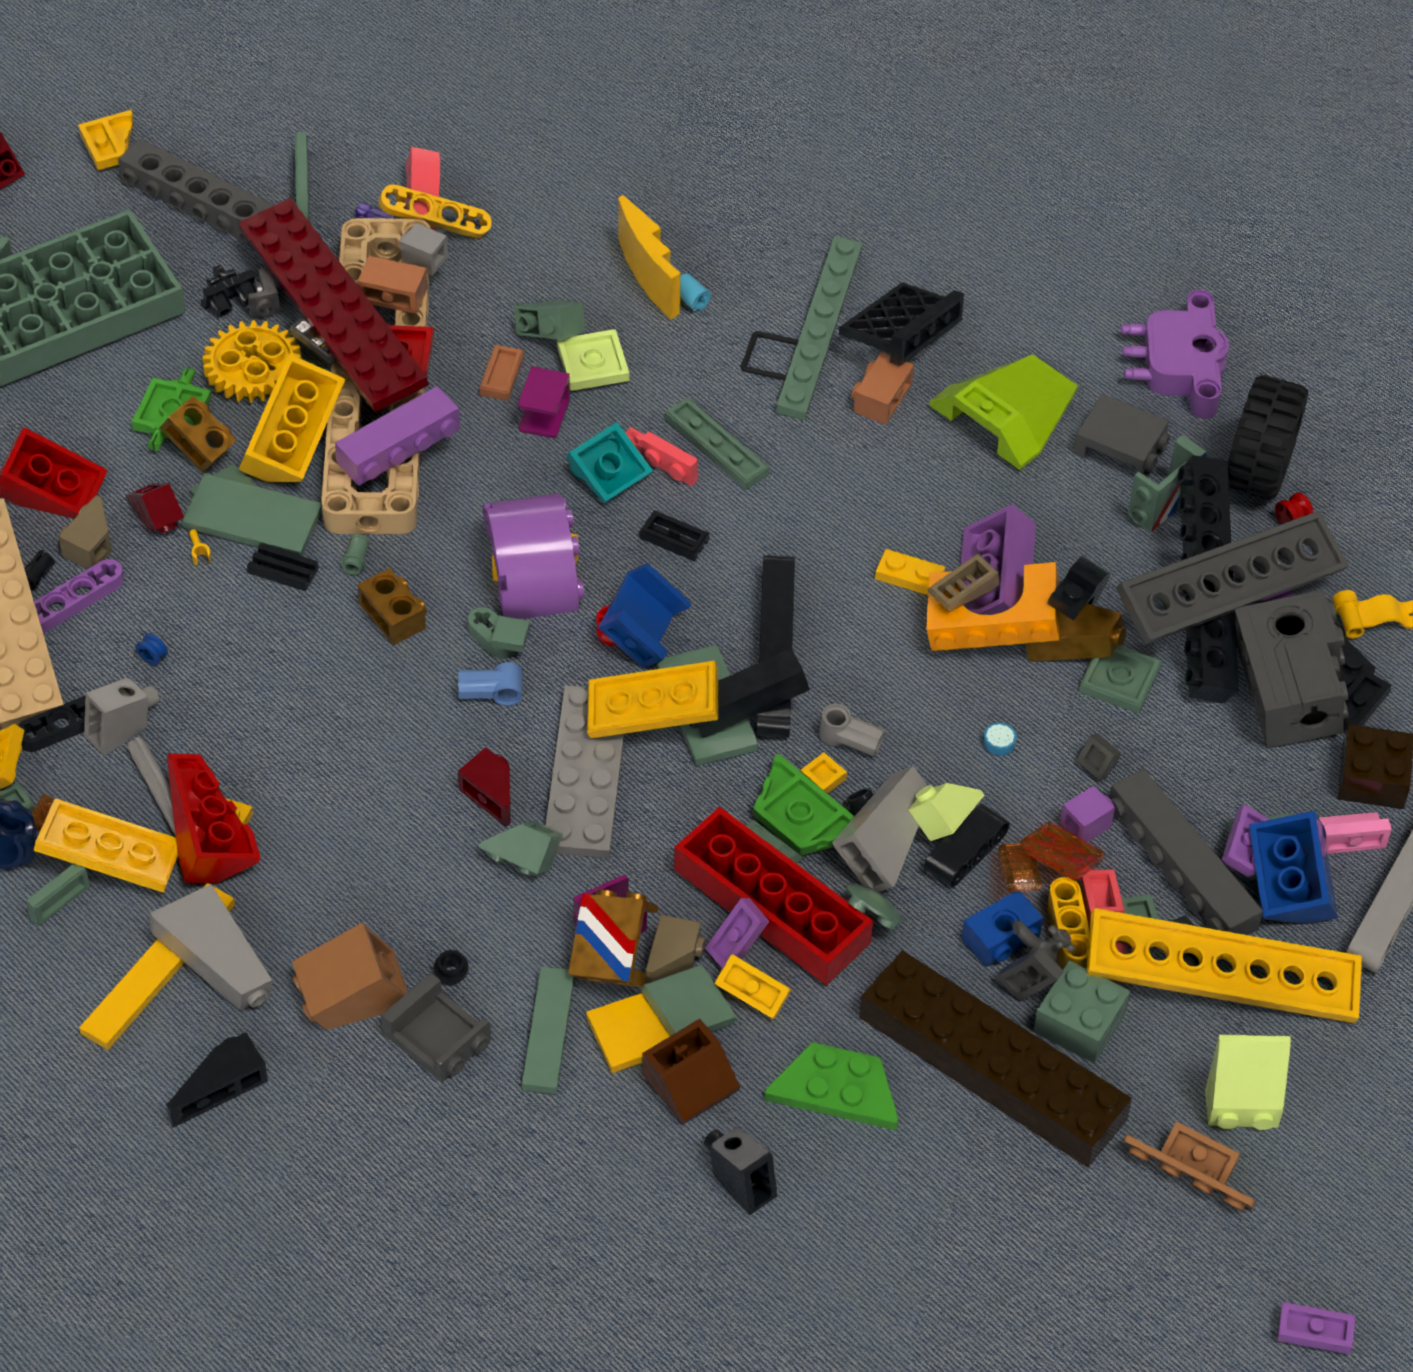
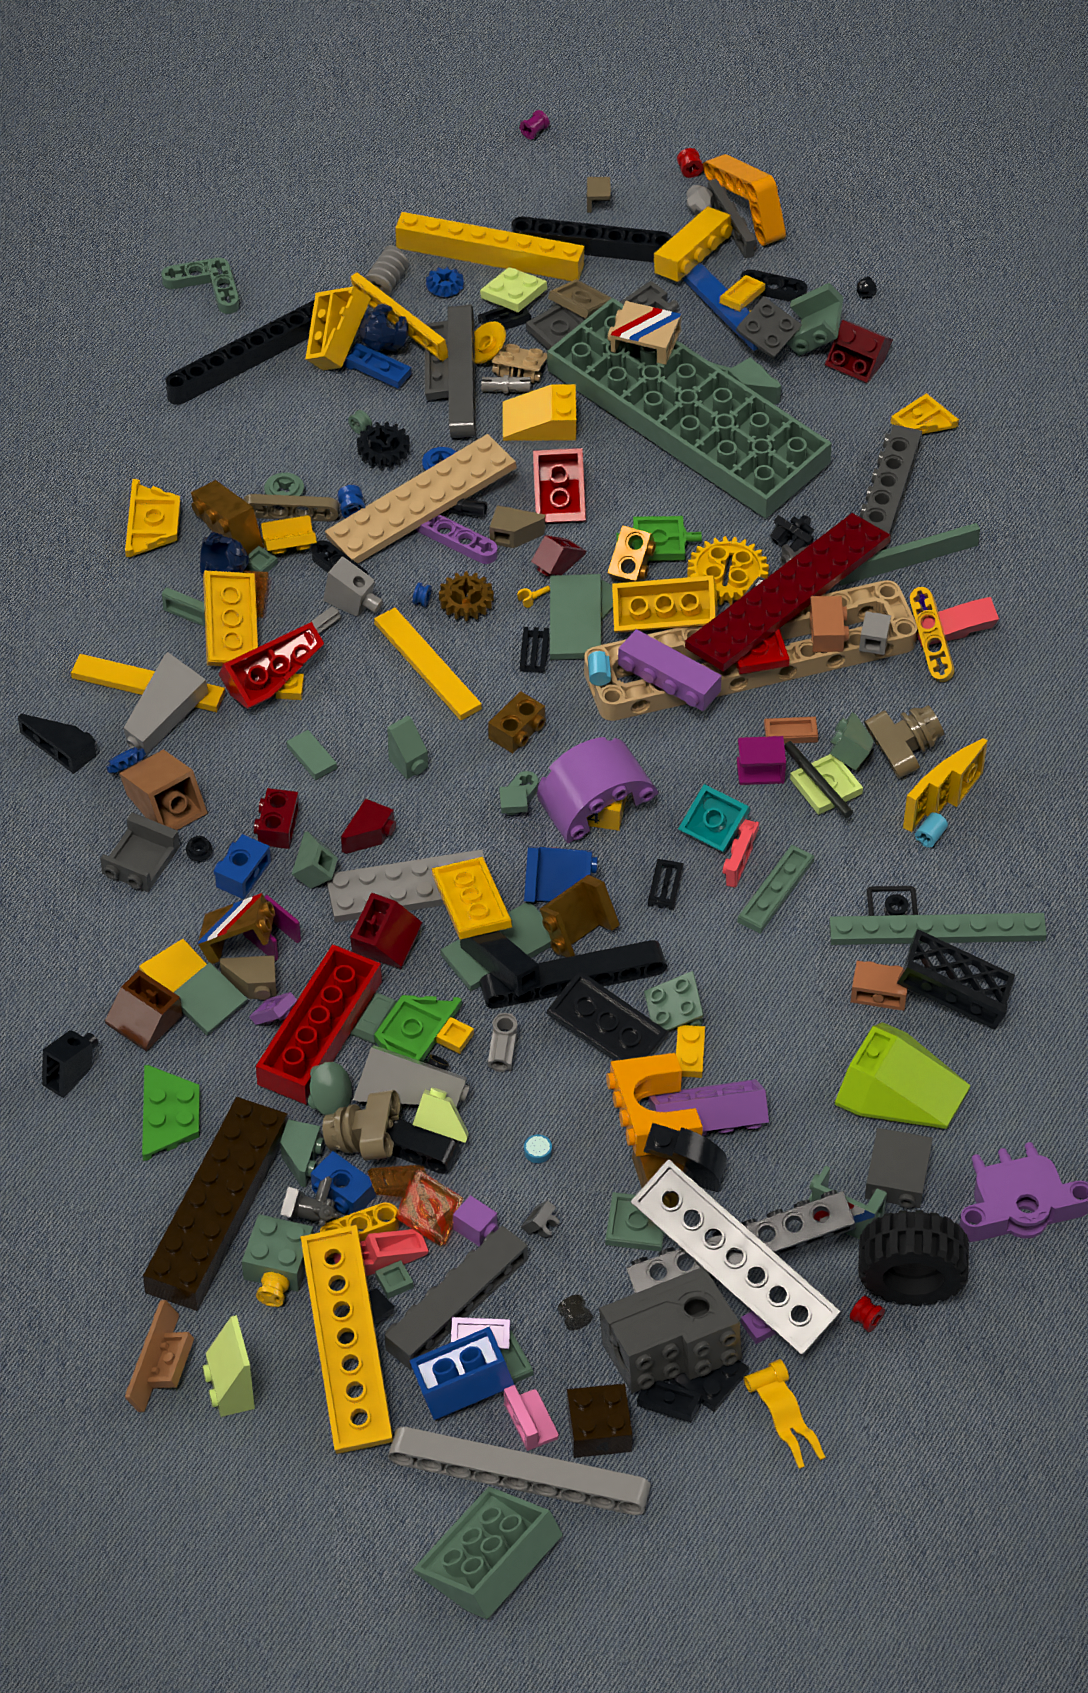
camera: 75 degrees right, 0 degrees up
(175, 607) = (478, 596): none -> pearl gold gear
(256, 673) = (428, 664): none -> yellow tile
(282, 998) = (125, 759): none -> blue gear
(349, 819) = (311, 754): none -> sand green tile
(353, 560) = (561, 688): sand green pin -> none
(365, 498) = (599, 668): none -> medium azure piece
(396, 715) = (406, 748): none -> sand green slope
(443, 866) = (277, 818): none -> dark red brick
(495, 908) = (242, 866): none -> blue brick
(500, 684) = (466, 807): medium blue piece -> none
(548, 1031) = (158, 921): sand green tile -> none
(563, 272) = (902, 738): none -> dark tan beam
(600, 358) = (818, 779): none -> pearl dark grey bar
(656, 803) = (385, 931): none -> dark red slope
(700, 593) = (578, 913): none -> pearl gold panel
(753, 986) = (235, 1034): yellow plate -> none
(776, 357) = (898, 900): none -> black bush
(847, 566) = (675, 1002): none -> sand green hinge
(856, 629) = (605, 1020): none -> black tile
(945, 866) = (365, 1129): none -> dark tan beam
(947, 955) = (300, 1147): none -> sand green slope
(974, 566) = (672, 1086): dark tan slope -> none
(1128, 1030) = (272, 1289): none -> yellow wheel
(1230, 755) = (574, 1312): none -> clear smoke wheel
(1316, 1328) = (35, 1468): medium lavender plate -> none

